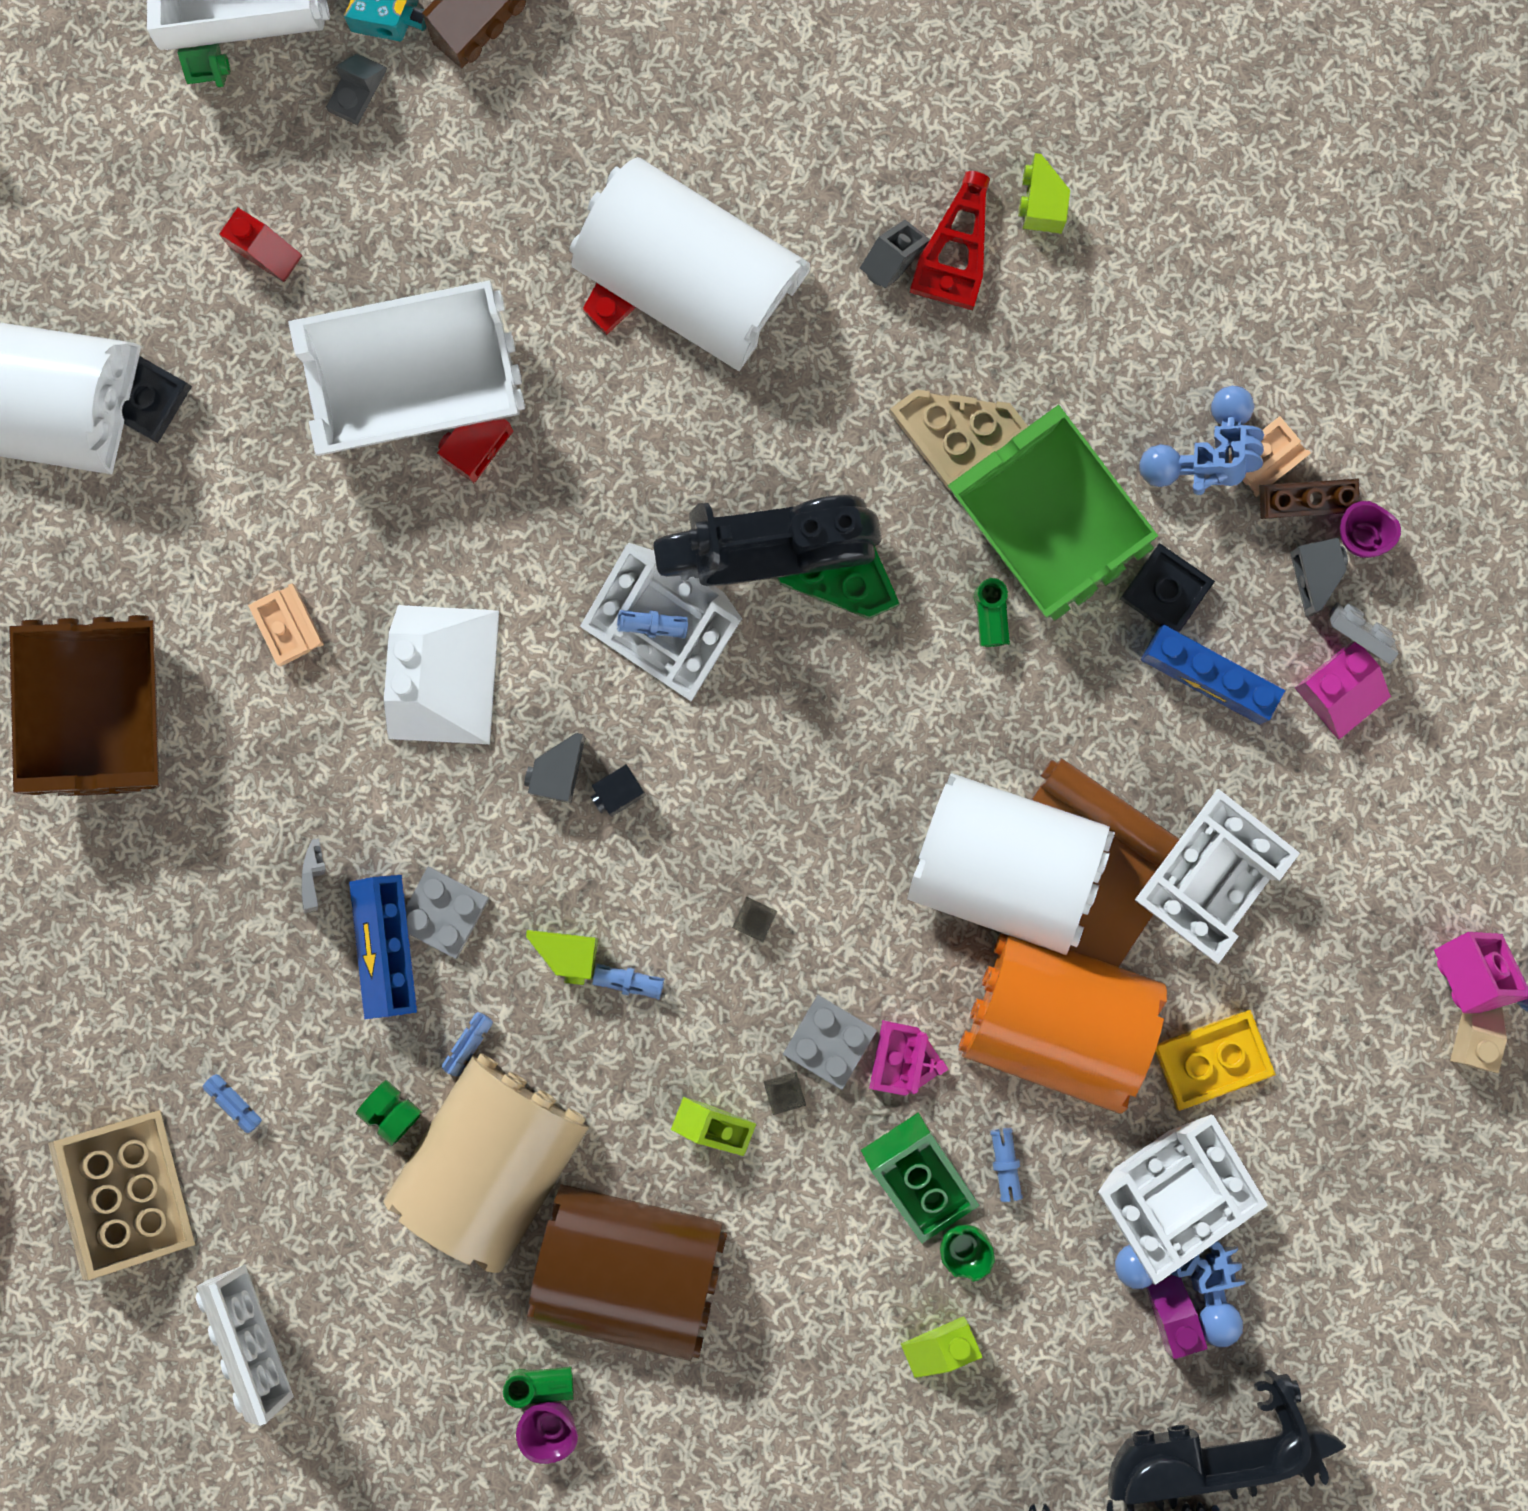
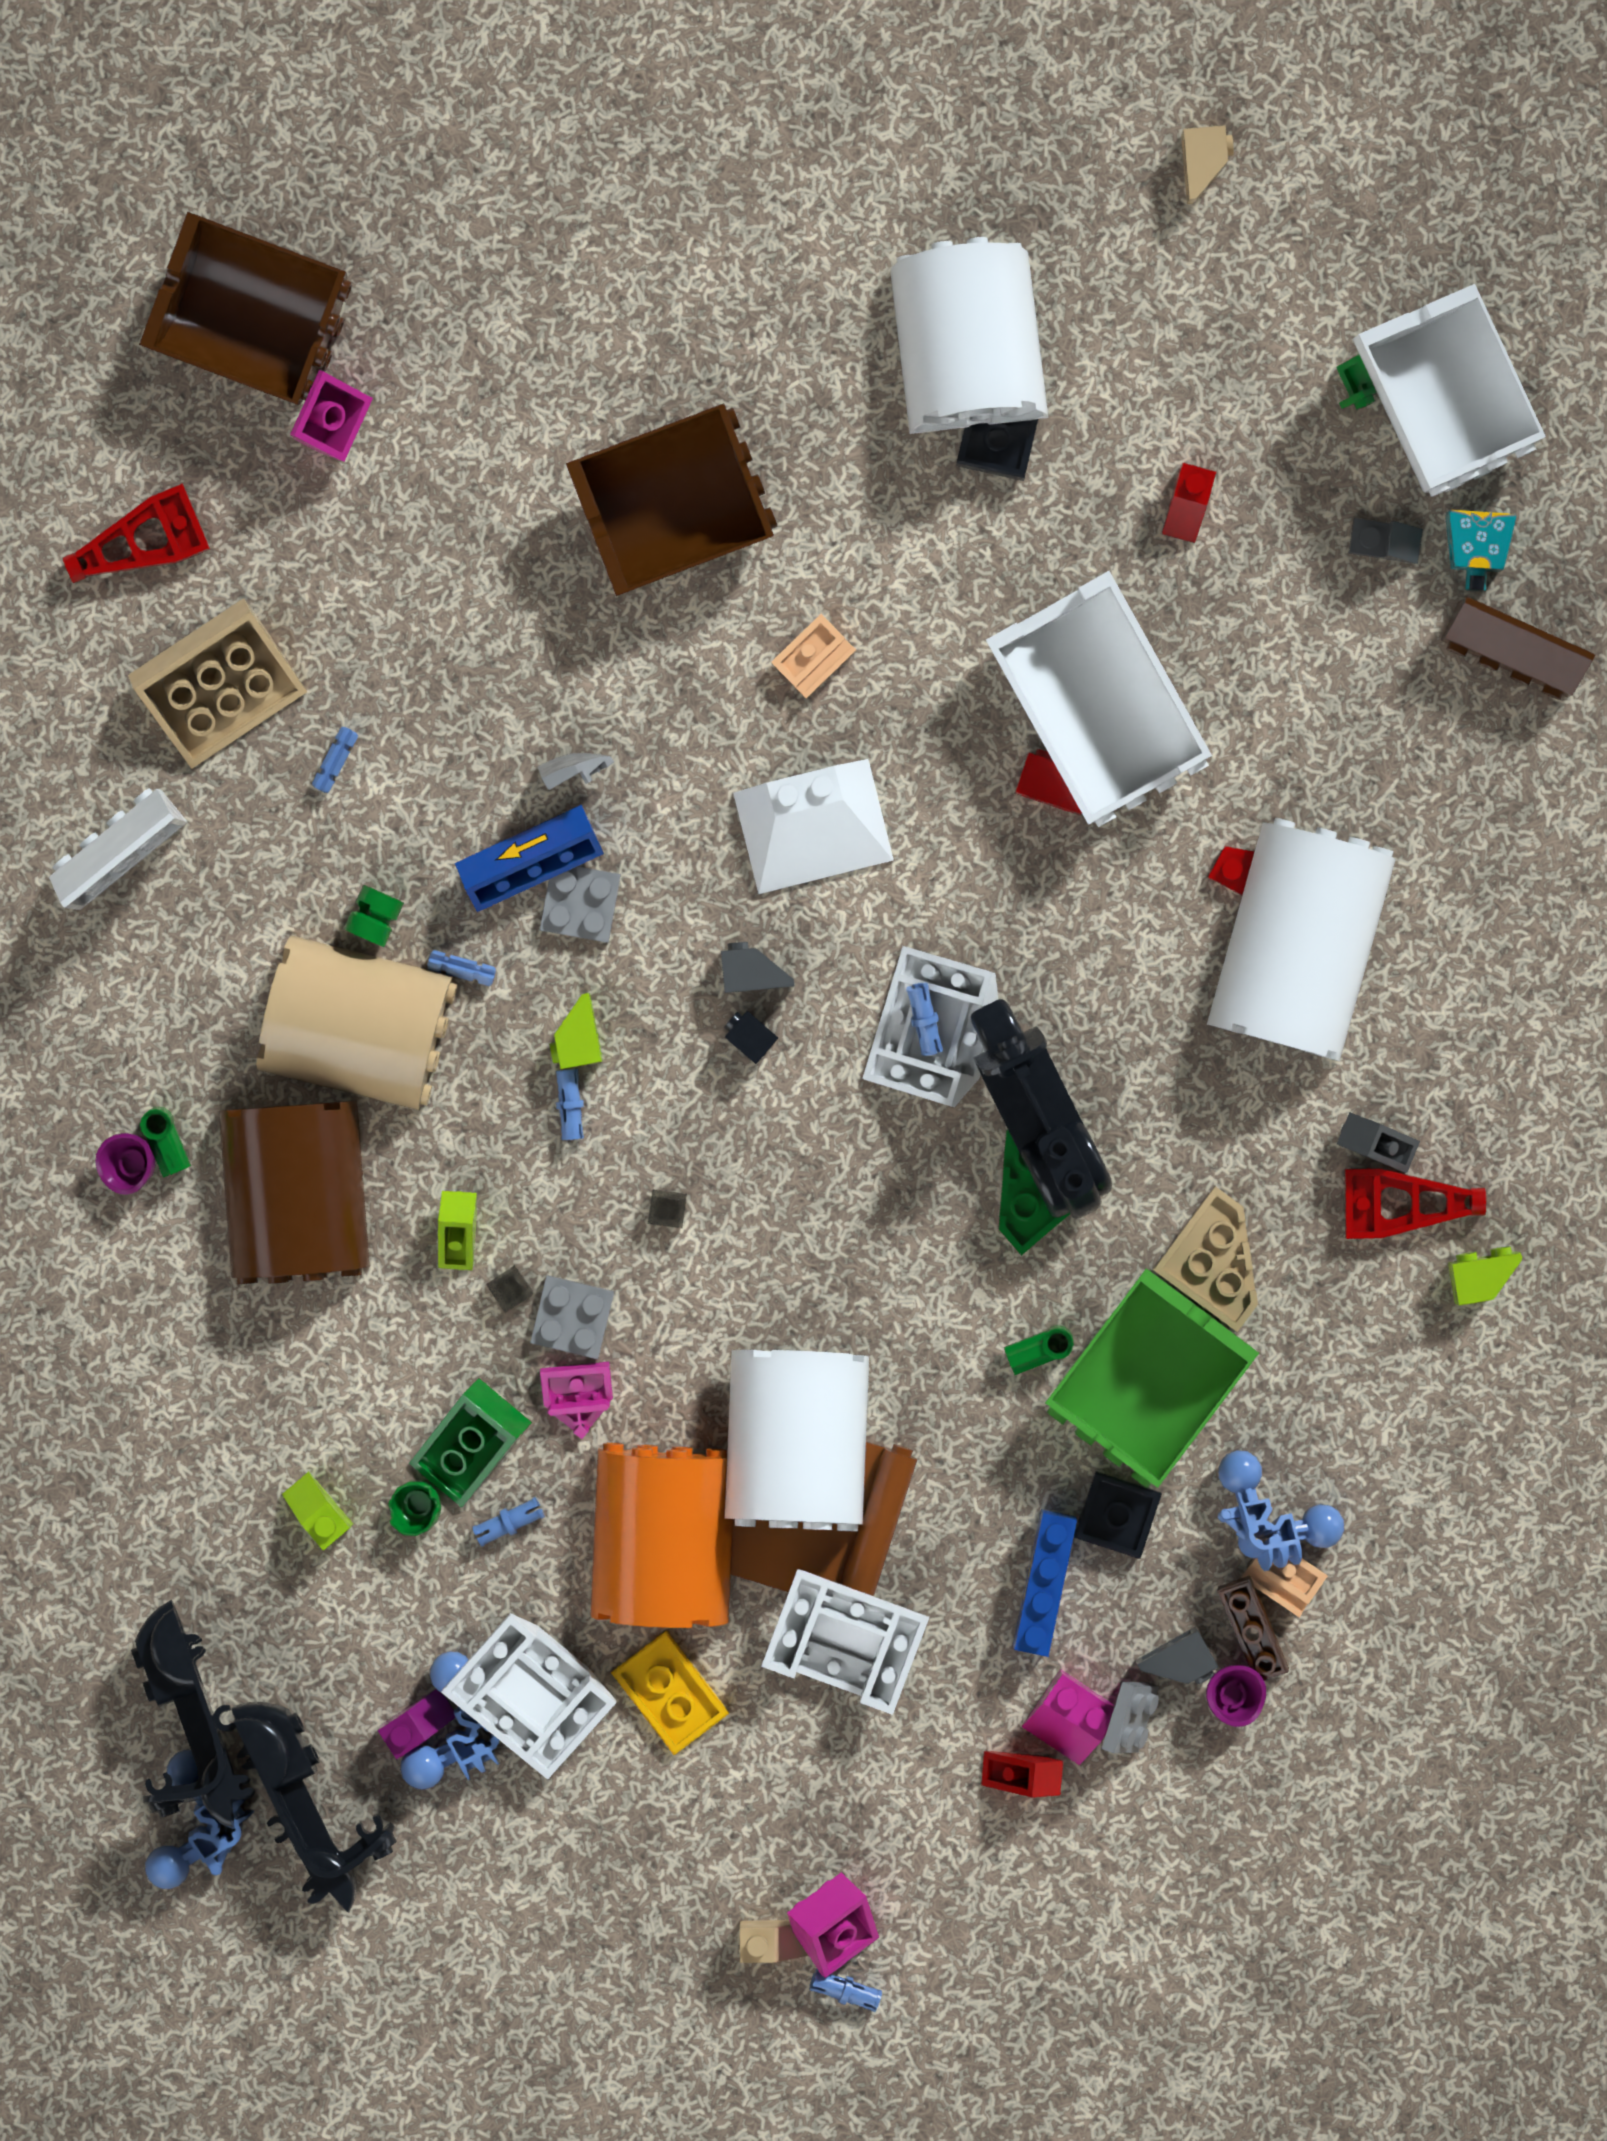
camera: 75 degrees right, 5 degrees up
(1386, 751) = (1022, 1773): none -> red slope

